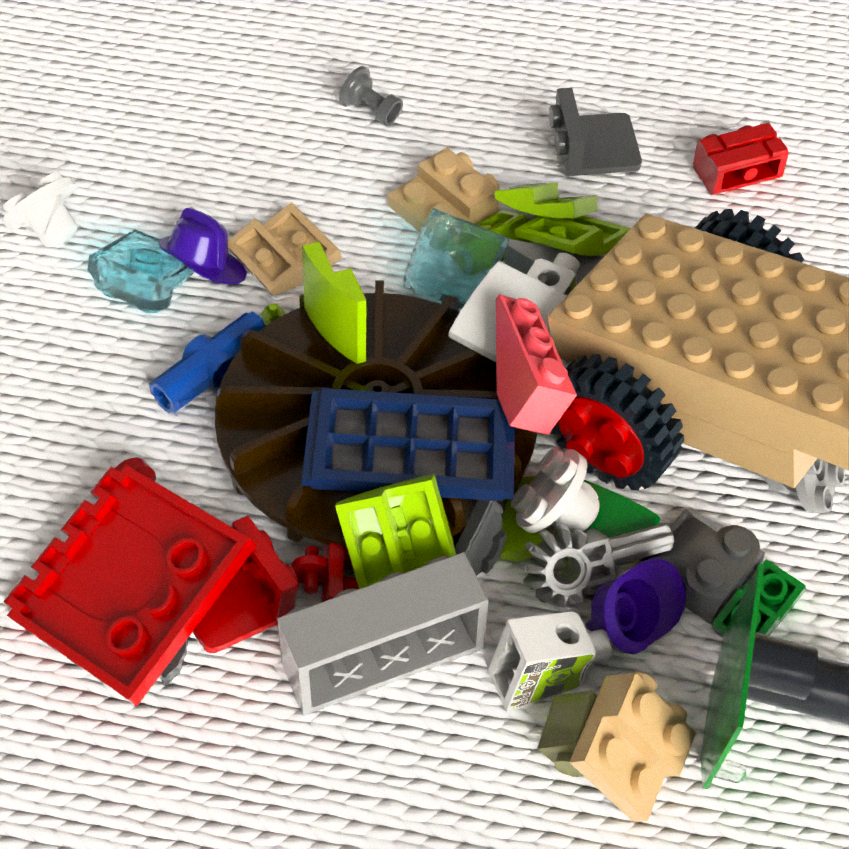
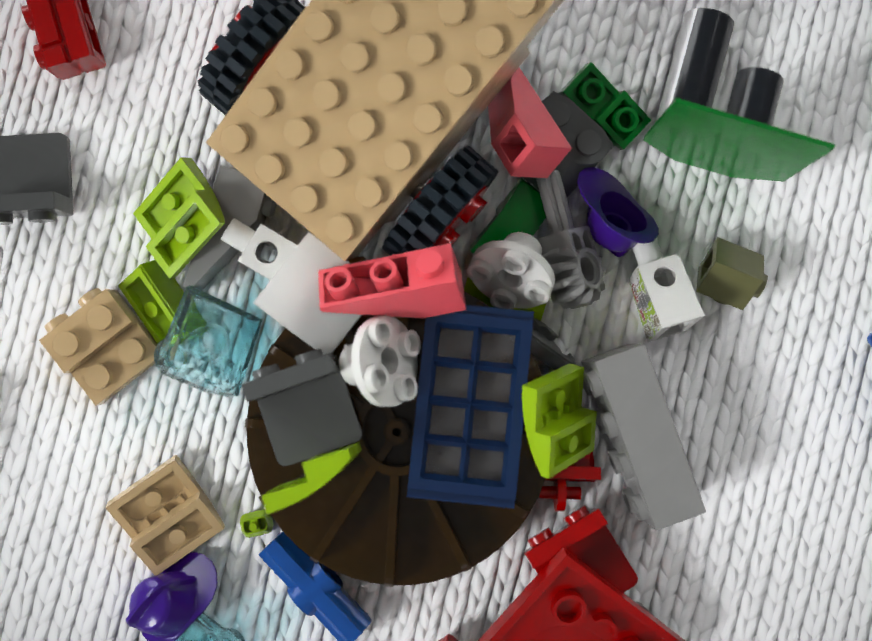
camera: 90 degrees left, 35 degrees up
(409, 308) = (305, 407): none -> dark grey bracket
(451, 356) = (382, 361): none -> white plate
(544, 201) = (128, 243): lime slope -> none
(632, 743) = (745, 234): tan plate -> none
(714, 494) = (525, 131): none -> coral slope

